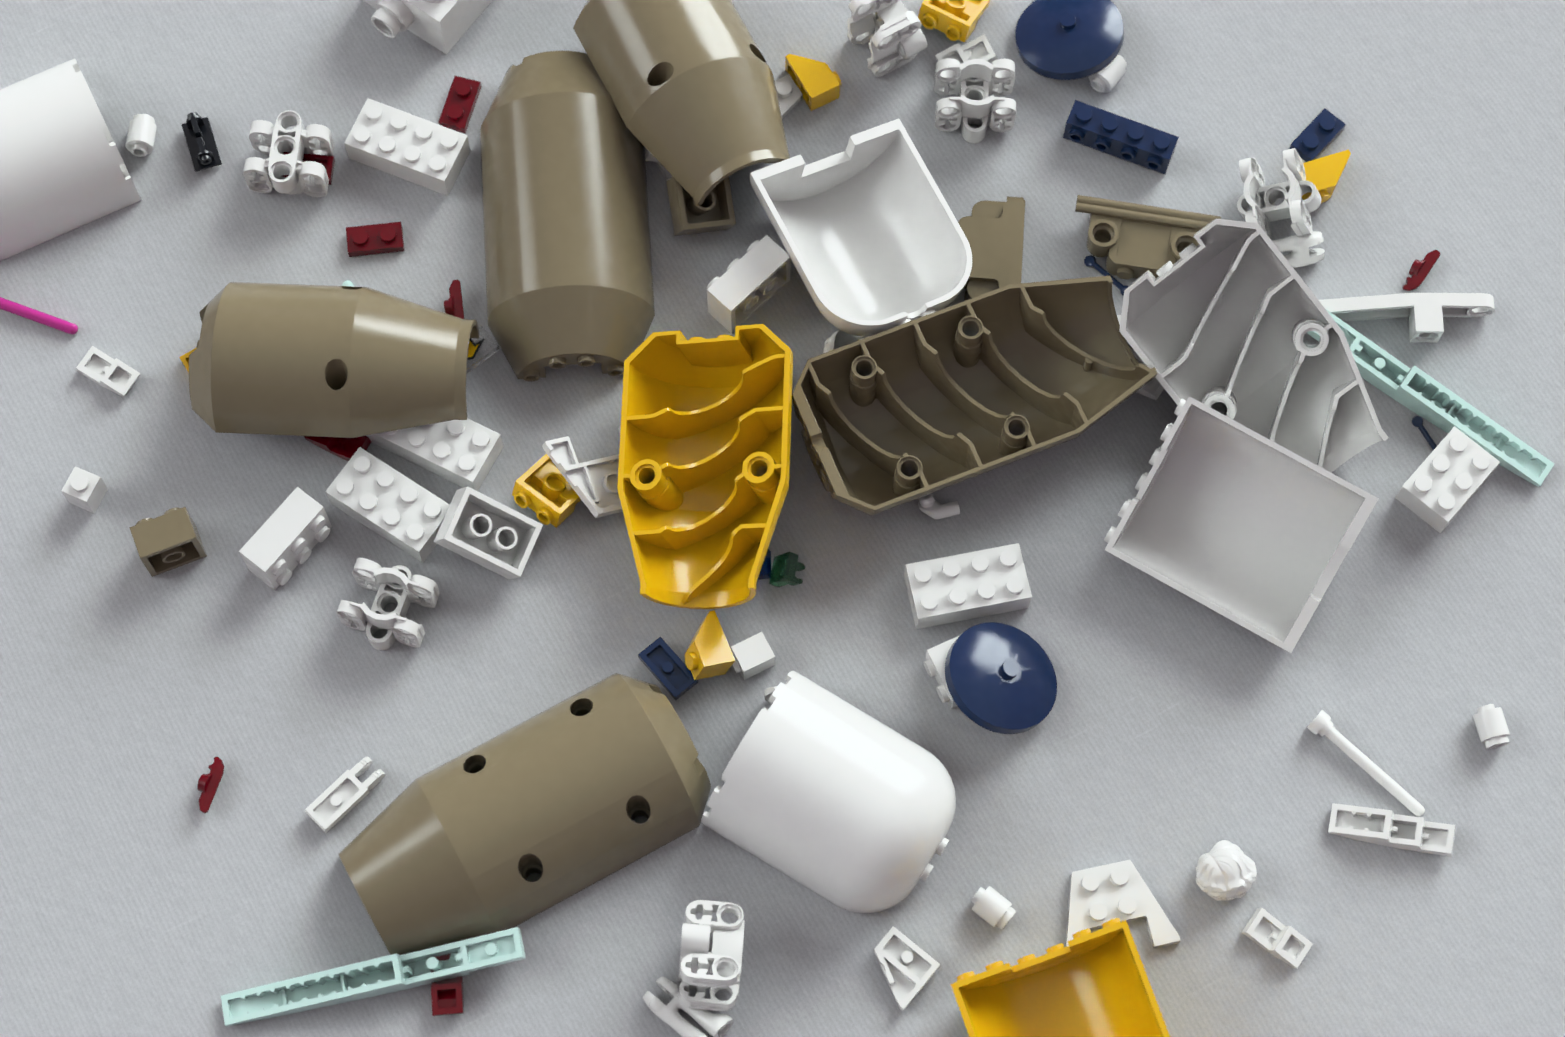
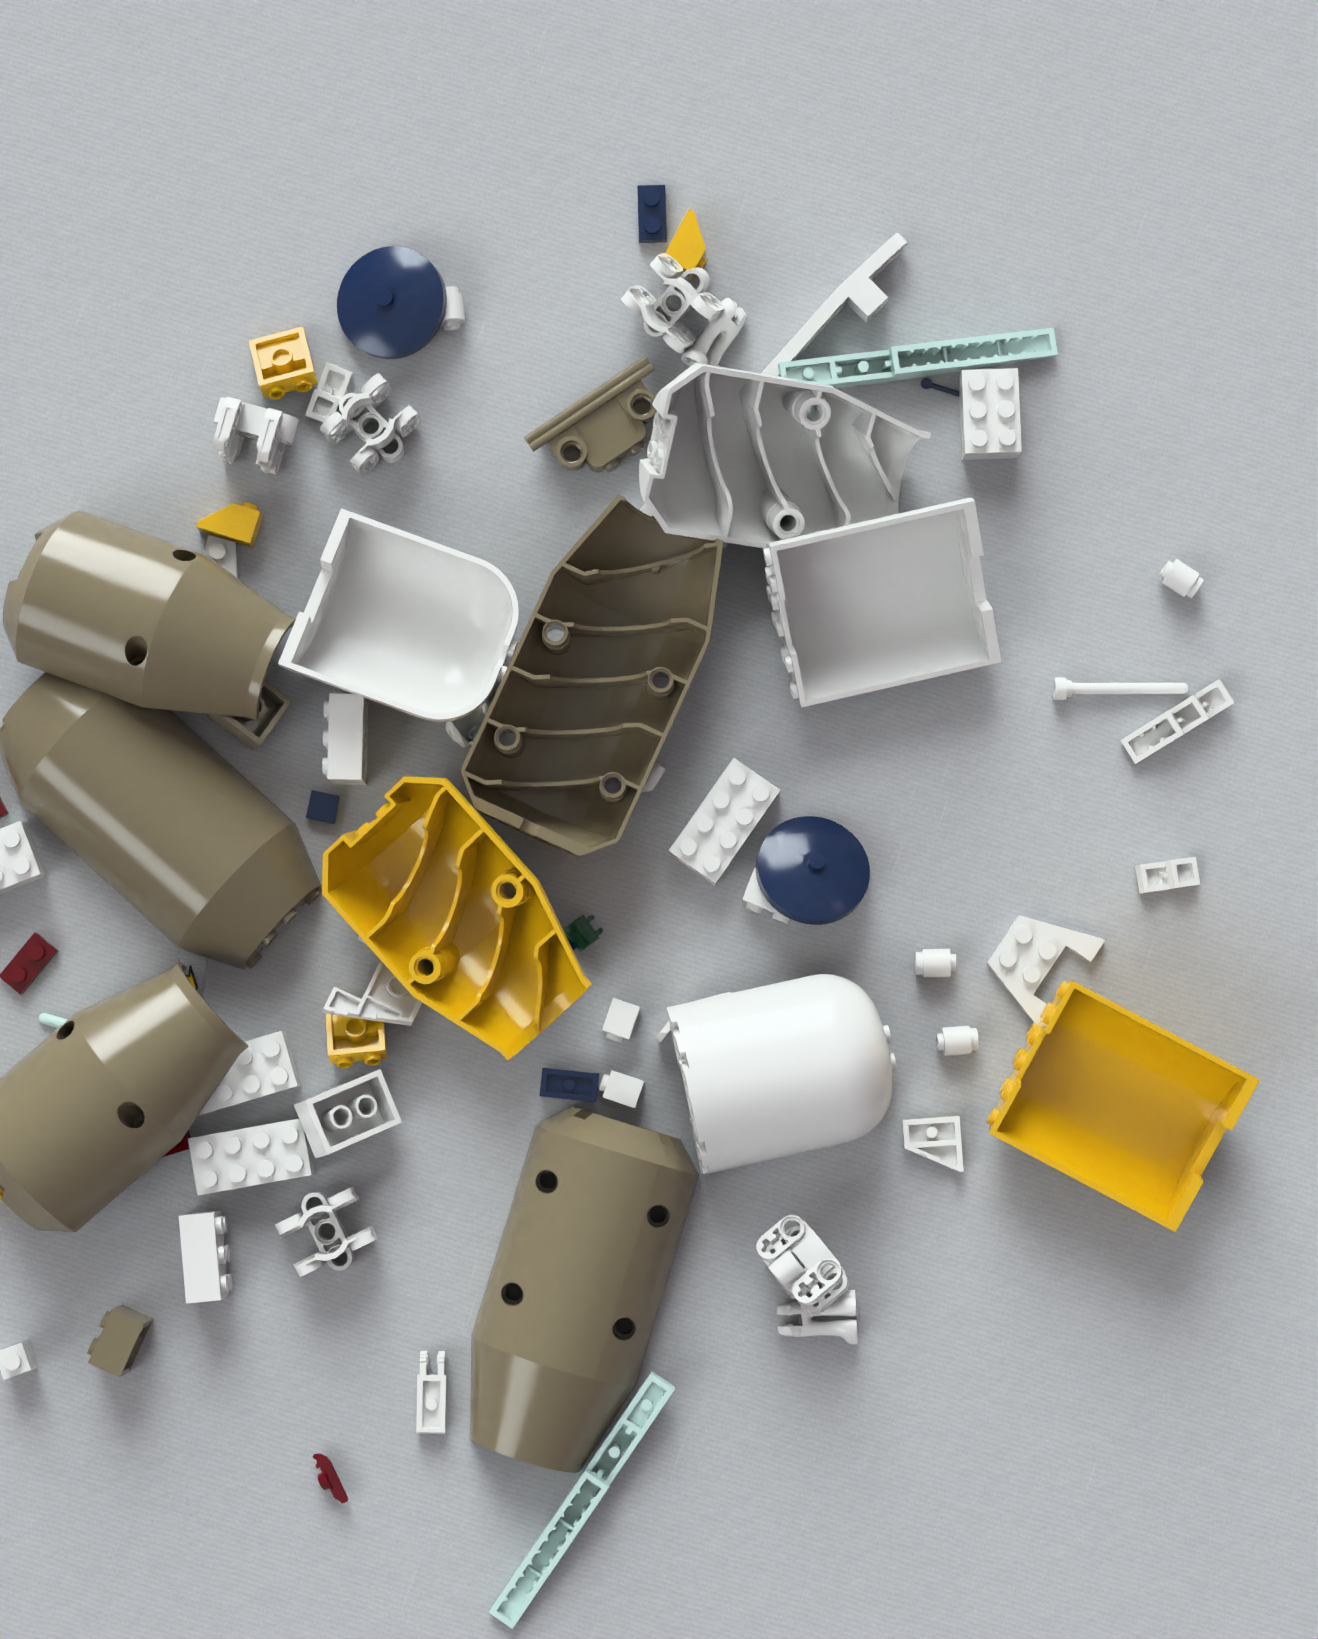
camera: 45 degrees left, 15 degrees up
(447, 994) = (643, 1461): dark red slope -> none
(454, 305) = (141, 959): dark red piece -> none
(685, 318) = (323, 807): none -> dark blue tile
(704, 706) = (621, 1088): none -> white brick
(709, 650) = (585, 1045): yellow slope -> none
(996, 244) = (499, 535): dark tan brick -> none
(1030, 834) = (935, 963): none -> white brick
(1091, 261) = (577, 477): dark blue hinge -> none
(1120, 137) = (509, 355): dark blue brick -> none
(1225, 872) = (1093, 862): white hair -> none
(1420, 270) = (825, 258): dark red piece -> none

